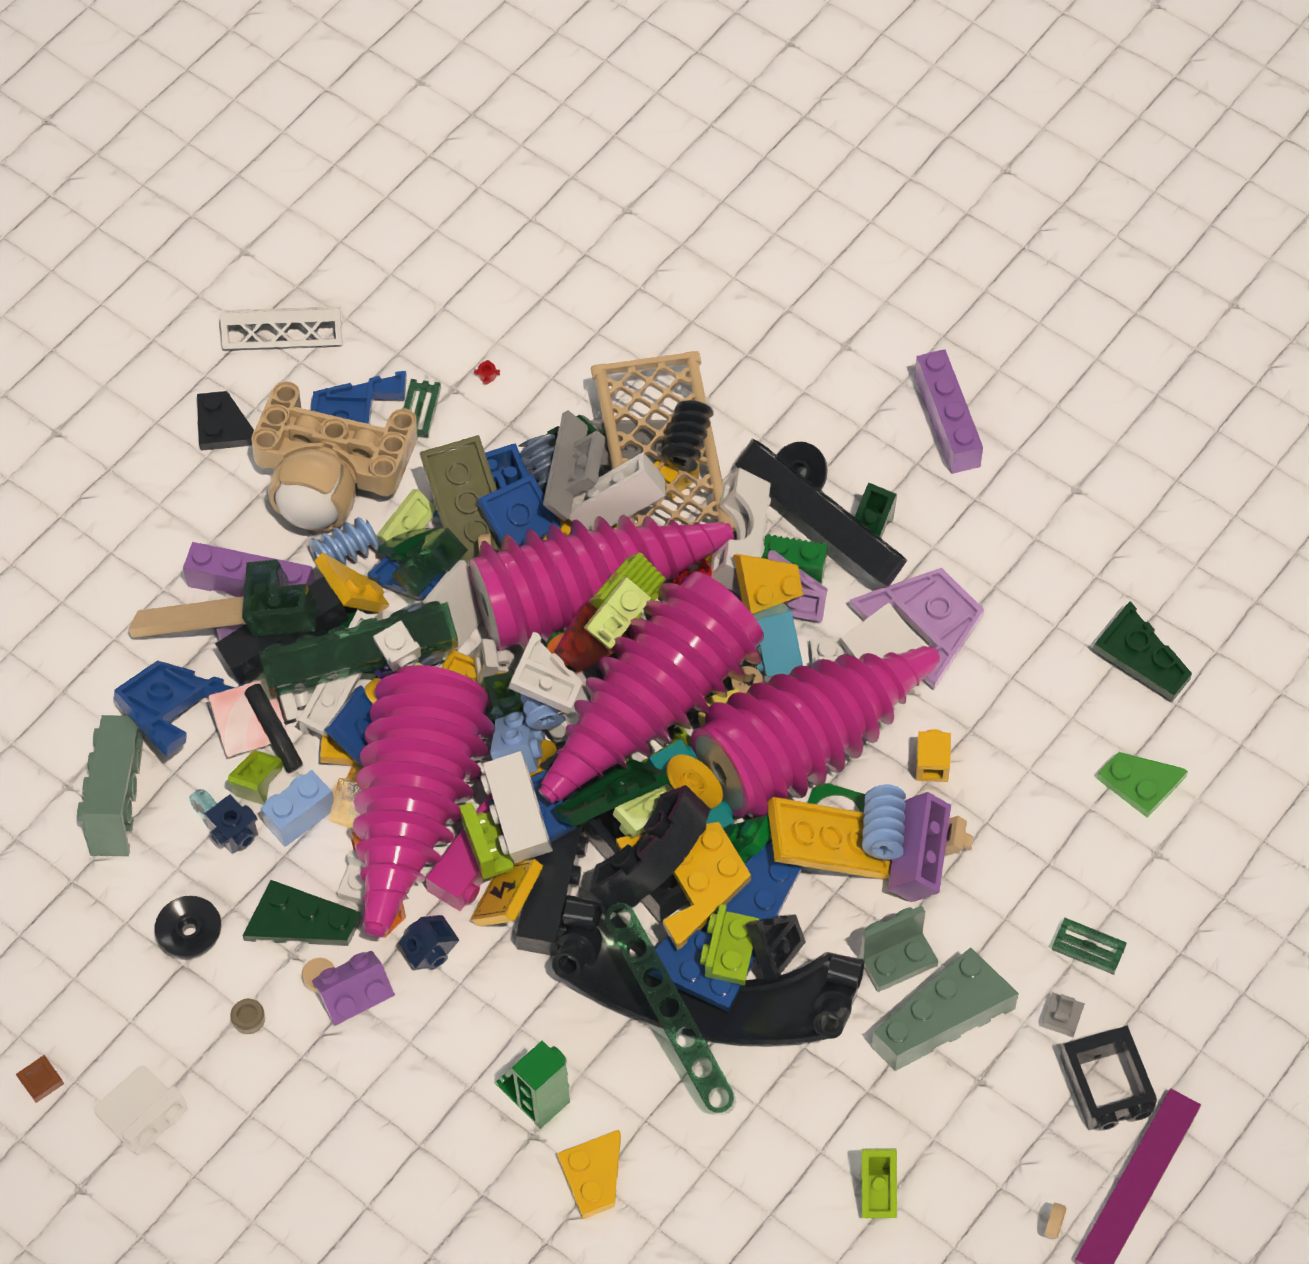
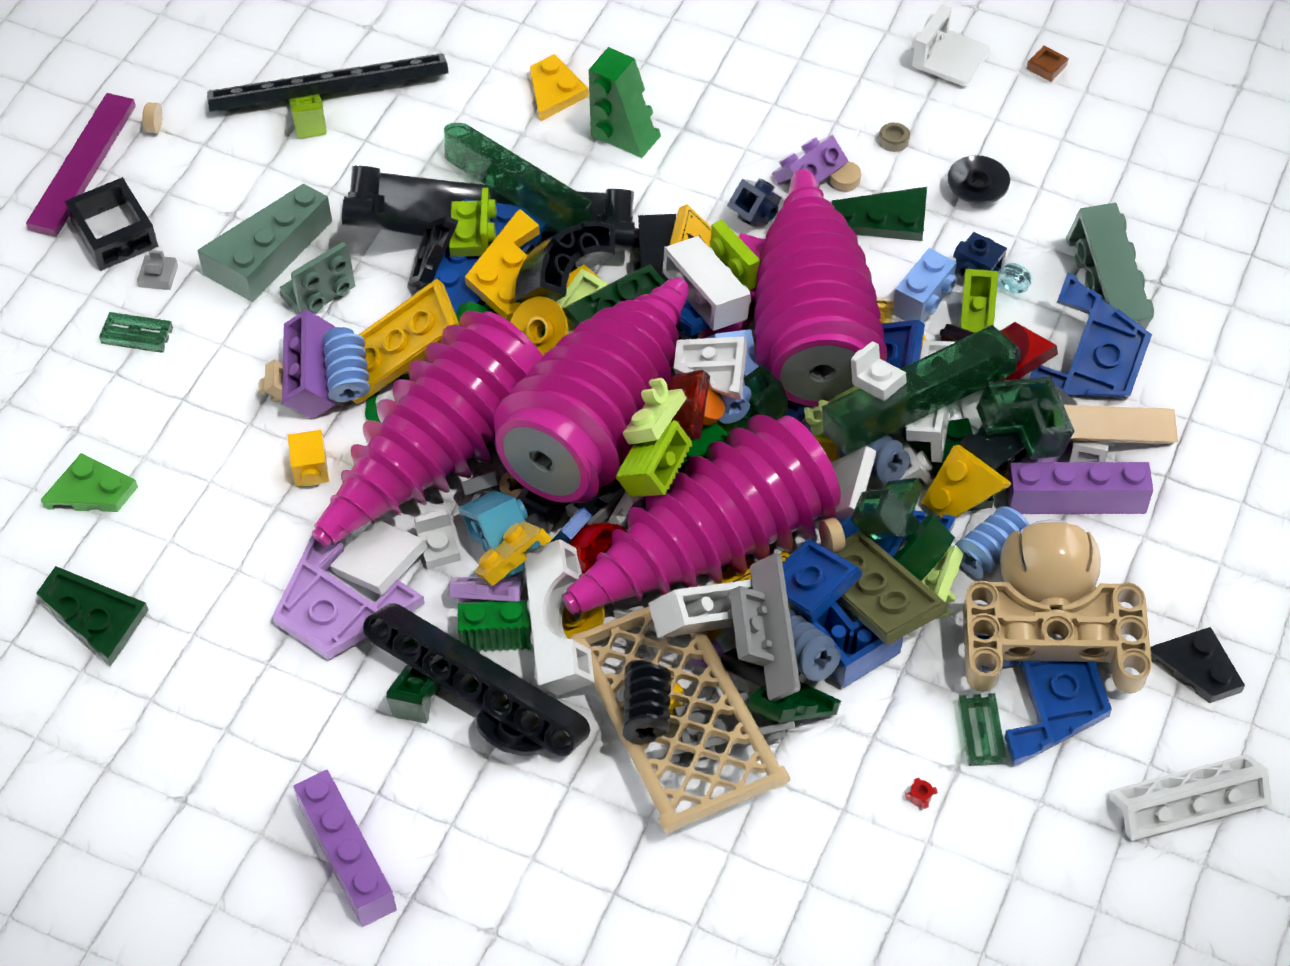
camera: 165 degrees right, 5 degrees down
(849, 1232) = (327, 82): none -> black tile

